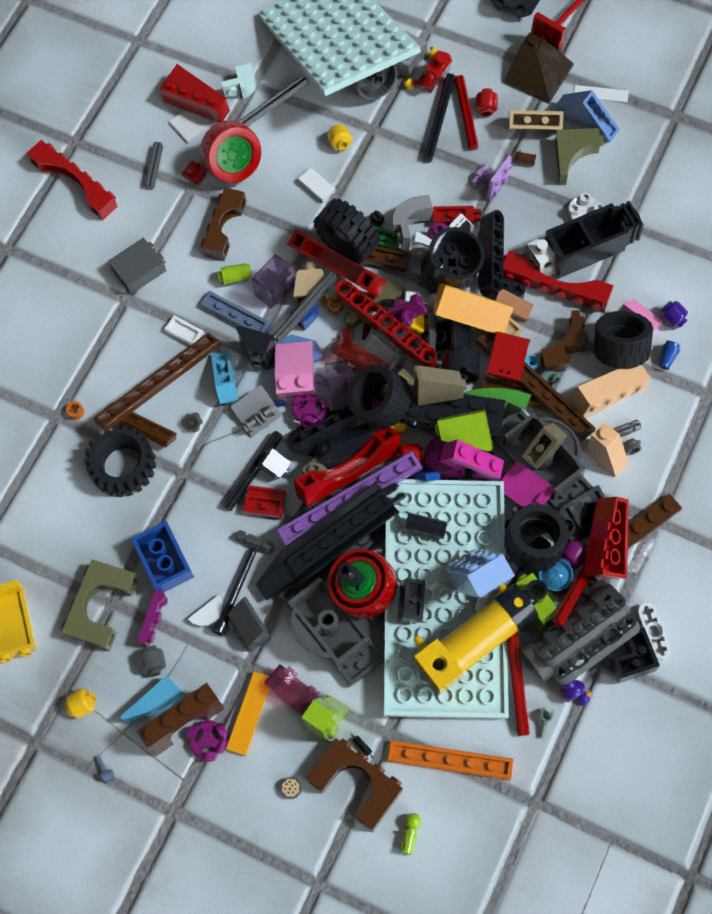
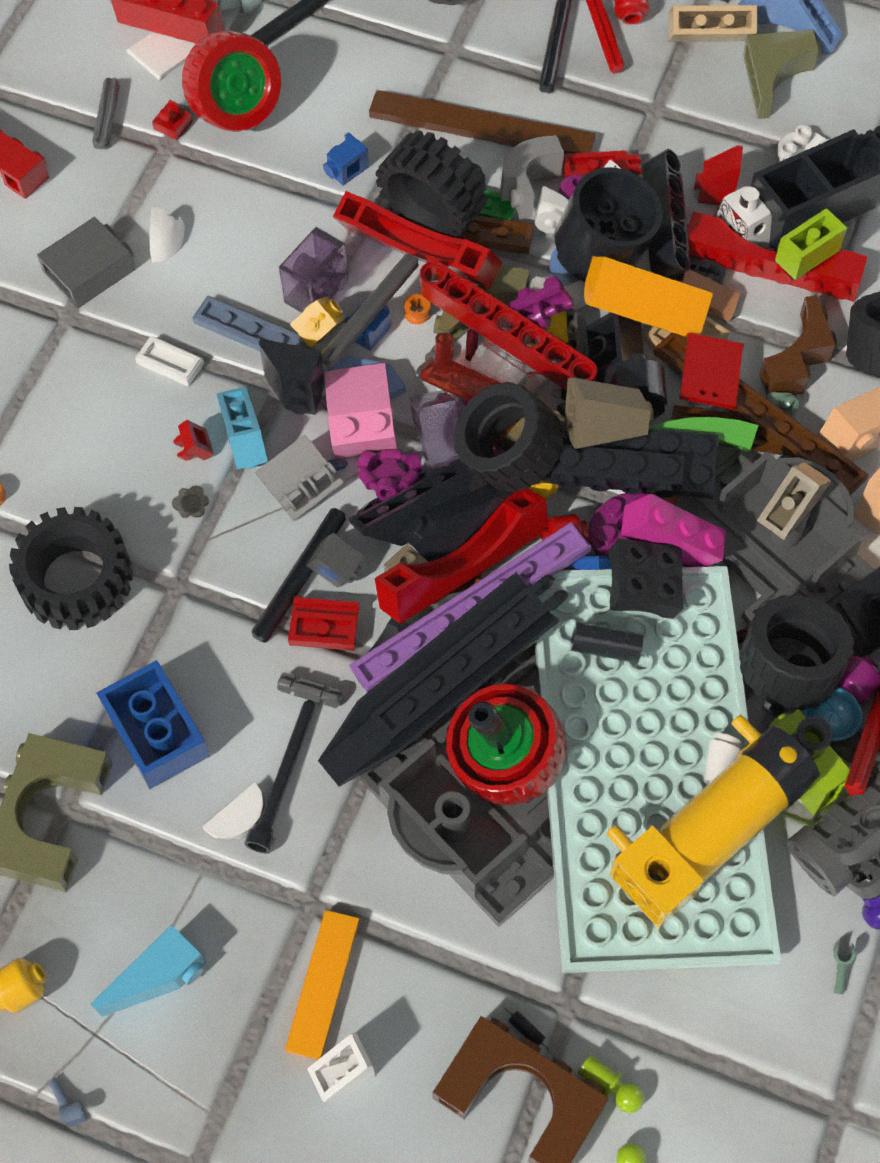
camera: 10 degrees left, 5 degrees down
(150, 429) = (126, 519): reddish brown plate -> none
(151, 660) = (142, 902): dark grey head -> none
(152, 618) = (140, 828): magenta plate -> none
(156, 382) = (127, 439): reddish brown tile -> none
(185, 249) = (164, 234): none -> white brick
(196, 384) = (194, 440): none -> red tile
(199, 703) = (232, 970): reddish brown arch -> none
(207, 740) = (250, 1037): magenta piece -> none
(230, 205) = (234, 166): reddish brown arch -> none
(234, 273) = (248, 267): lime head -> none
(248, 624) = (310, 829): dark grey slope -> none
(256, 761) = (341, 1068): none -> white slope
(273, 312) = (318, 321): none -> yellow head
(291, 689) = (398, 940): clear pink brick -> none
(291, 788) = (406, 1113): tile -> none
(299, 204) = (346, 160): none -> blue brick
(306, 281) = (368, 272): tan torso -> none
(316, 185) = (372, 131): white tile -> none
(324, 717) = (457, 983): lime wedge -> none
(339, 137) = (403, 57): yellow head -> none
(382, 182) = (473, 122): none -> reddish brown tile
(411, 600) = (594, 768): black hinge -> none
(415, 787) = (627, 1096): none -> lime pin
(450, 760) = (684, 1044): orange tile -> none
(452, 488) = (646, 578): none -> black brick
(466, 427) = (665, 475): lime slope -> none
(478, 572) = (712, 709): light blue brick -> none
(493, 179) = (655, 110): lavender plate -> none
(518, 685) = (790, 906): red axle -> none
(525, 158) = (700, 80): reddish brown pin -> none
(525, 486) = (764, 573): dark pink container -> none
(527, 227) = (719, 176): none -> red slope
(534, 359) = (751, 376): medium azure plate -> none
(576, 278) = (810, 244): none -> lime brick

